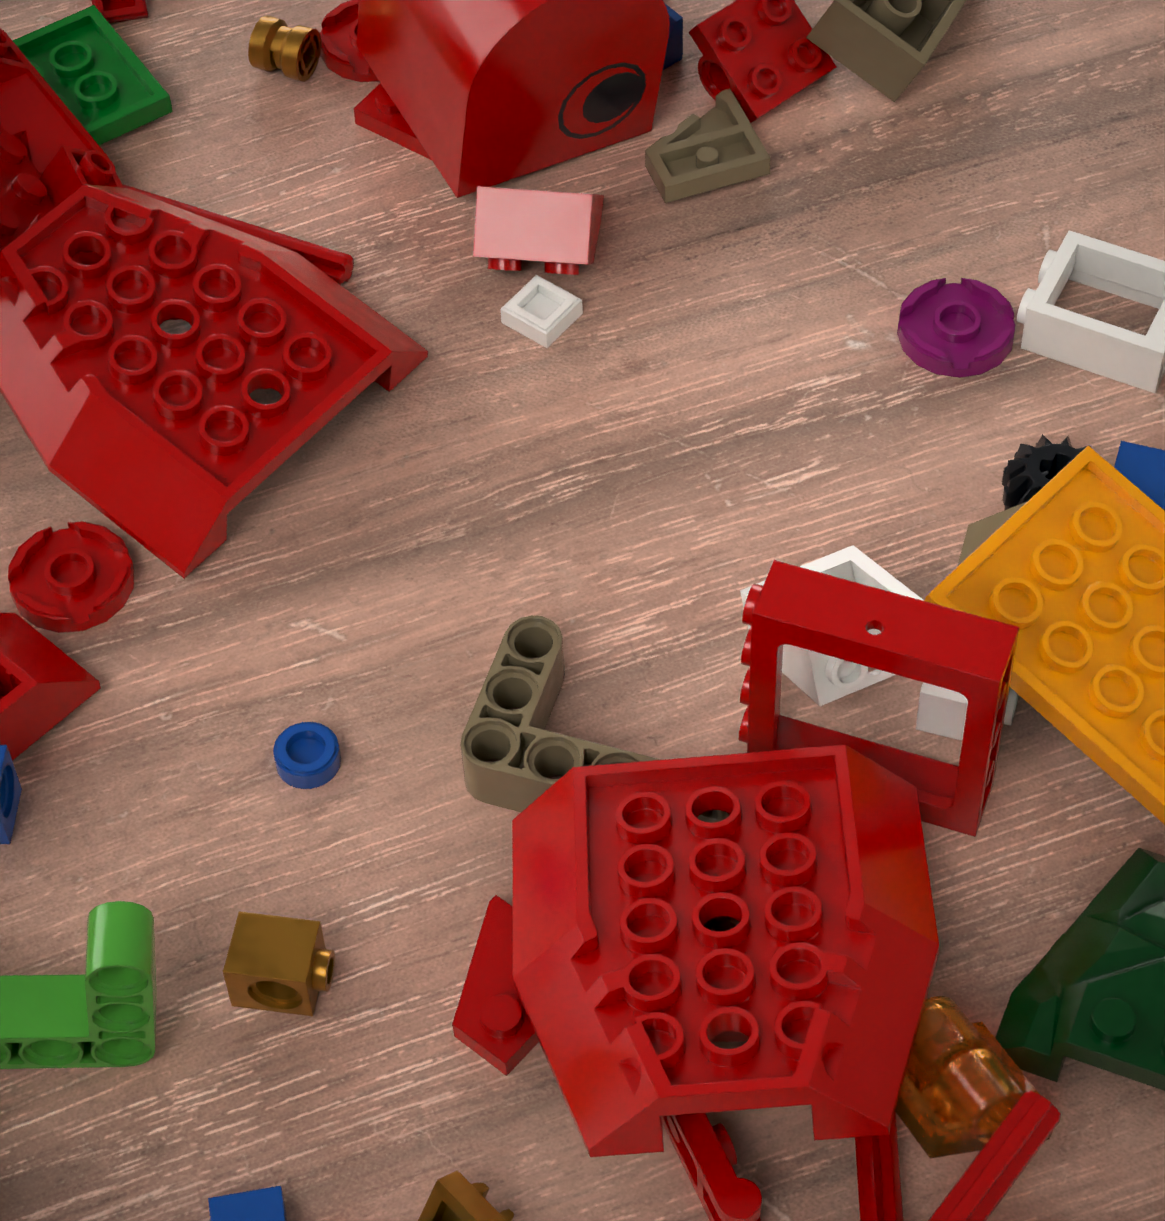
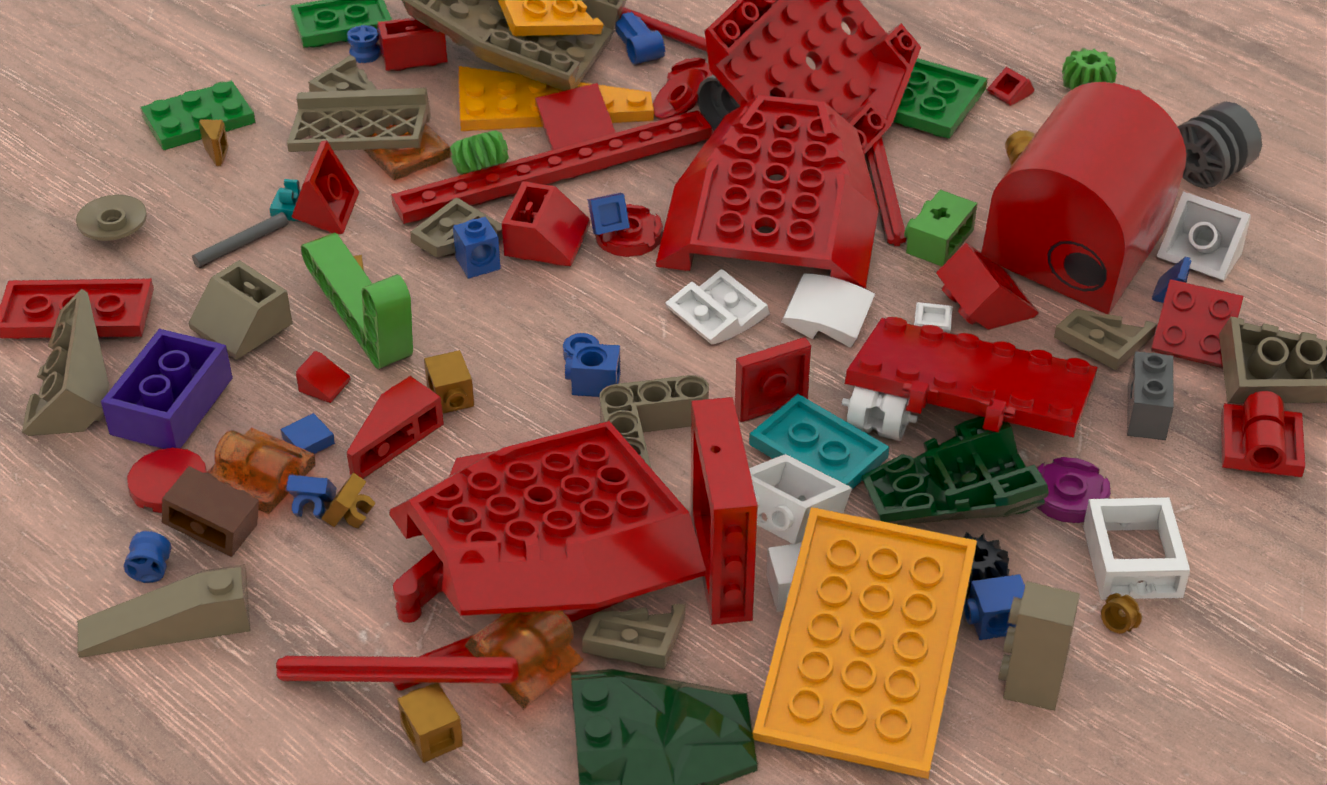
camera: 60 degrees right, 10 degrees down
(49, 578) = (608, 213): none -> blue tile
(124, 1155) = (321, 377): none -> red slope
(320, 1081) = (394, 424): none -> red slope
(339, 540) = (718, 307): none -> white slope
(372, 208) = (940, 227): none -> bright green brick
(391, 729) = (593, 368): none -> blue brick
(440, 411) = (828, 307): none -> white slope
(584, 535) = (771, 378): none -> red tile
(698, 452) = (878, 411): none -> white wheel
(706, 549) = (819, 441): none -> teal plate
(717, 318) = (973, 376): none -> red hinge
(857, 160) = (1150, 395): none -> dark grey brick
(905, 422) = (959, 479): none -> dark green wedge
(979, 929) = (634, 635): none -> dark tan wing
(989, 99) = (1263, 436): none -> red plate

